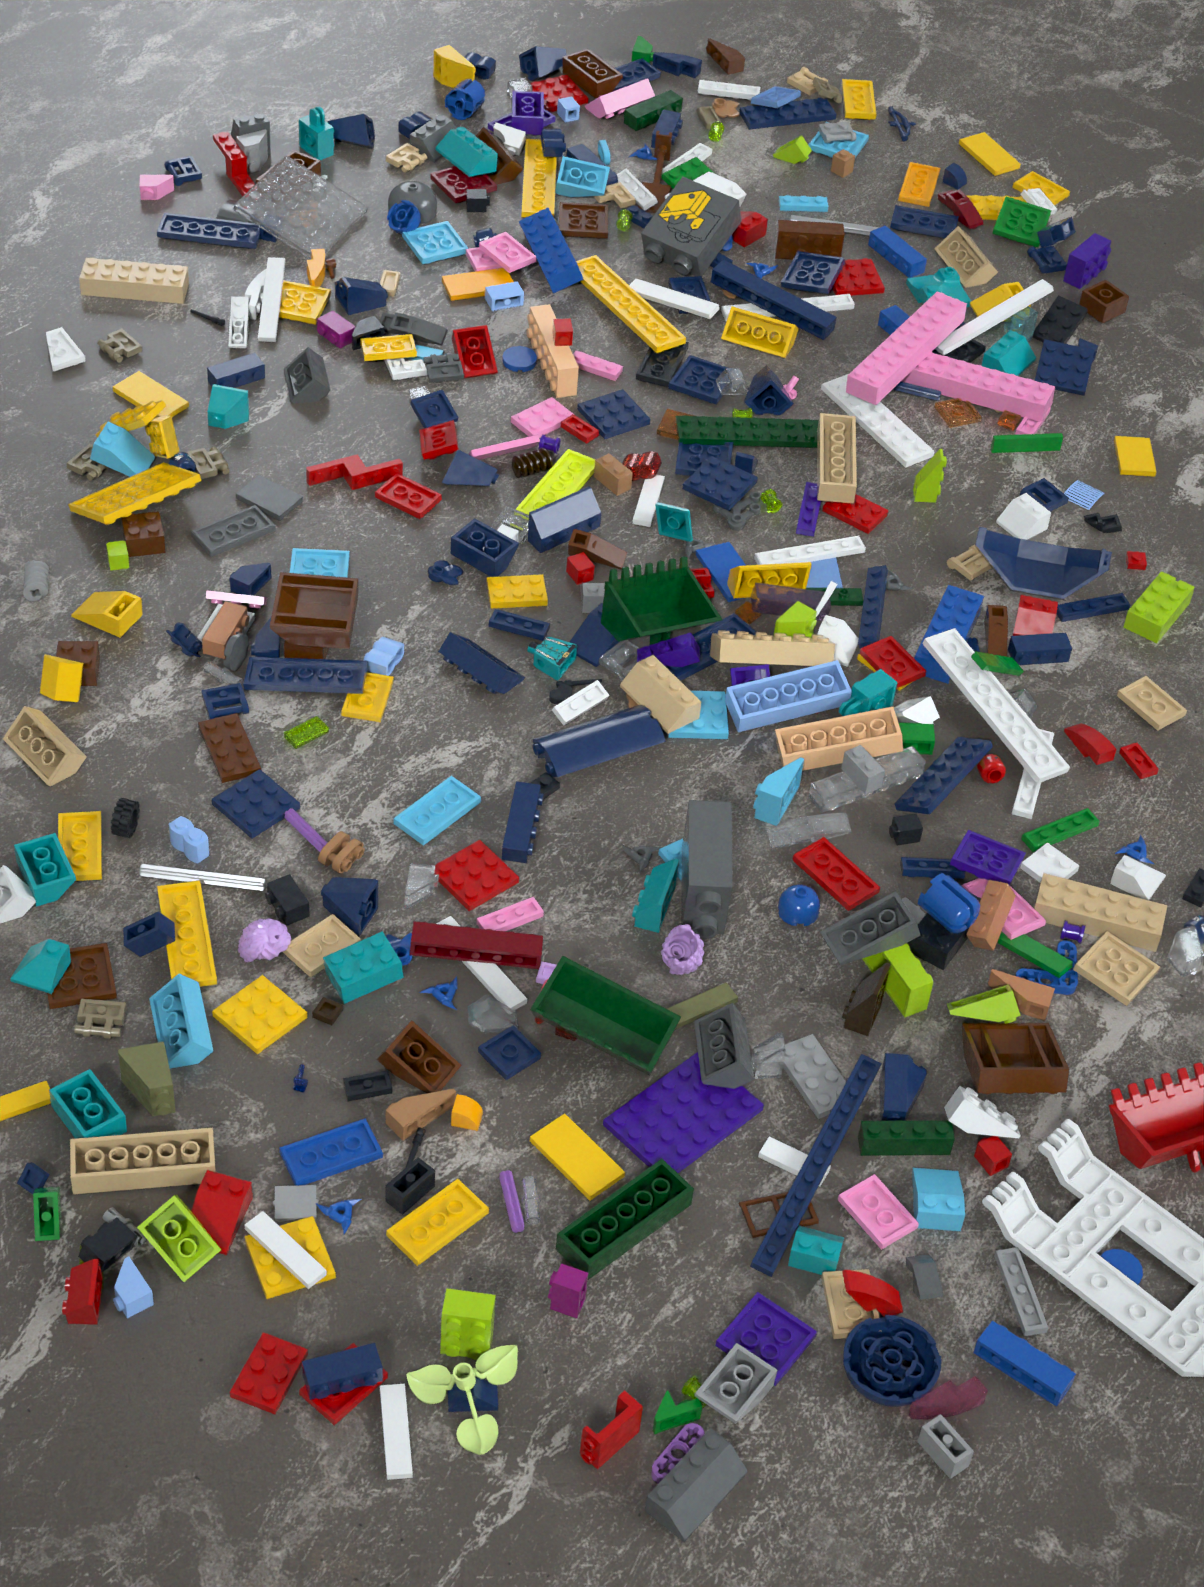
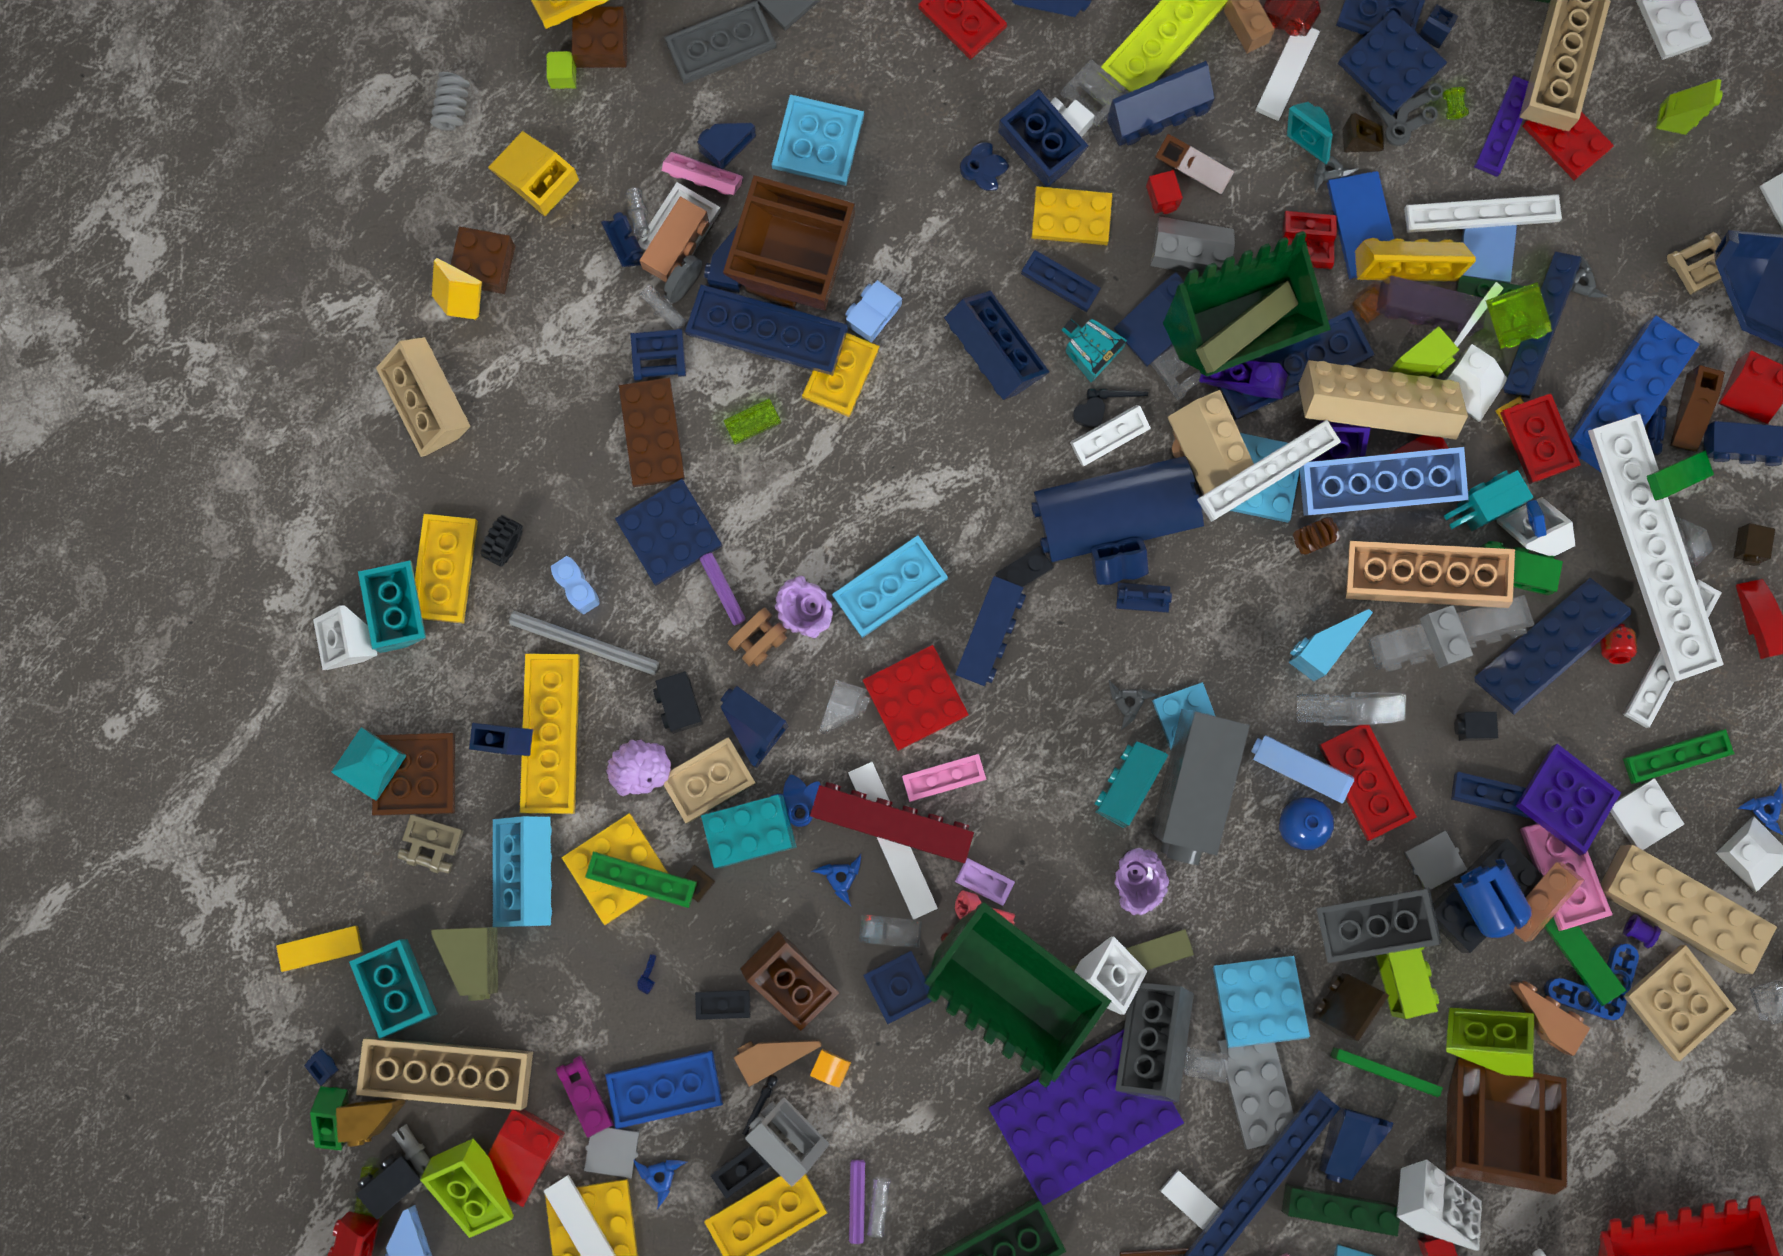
camera: 15 degrees right, 35 degrees up
(83, 1197) = (363, 1120): none -> pearl gold slope
(192, 623) = (637, 213): none -> clear pin
(264, 1166) = (584, 1097): none -> magenta plate
(282, 1010) = (641, 879): none -> green tile
(372, 824) = (796, 607): none -> lavender hair
(443, 1155) = (797, 1130): none -> light grey window
(577, 1157) = (946, 1152): yellow tile -> none
(609, 768) = (1119, 561): none -> dark blue brick
(627, 792) = (1143, 597): none -> dark blue hinge
(661, 616) = (1247, 327): none -> olive tile
(679, 1003) = (1112, 973): none -> white slope
(702, 690) = (1268, 470): none -> white tile
(710, 524) = (1362, 135): none -> dark brown slope
(750, 735) = (1316, 535): none -> reddish brown gear
(786, 864) = (1303, 768): none -> light blue slope
(799, 1016) = (1261, 1002): none -> medium azure plate
(852, 594) = (1519, 316): none -> clear neon green slope
(904, 697) = (1536, 518): none -> blue tile
(911, 1045) = (1386, 1072): none -> green tile
(1066, 701) = (1754, 544): none -> dark brown brick

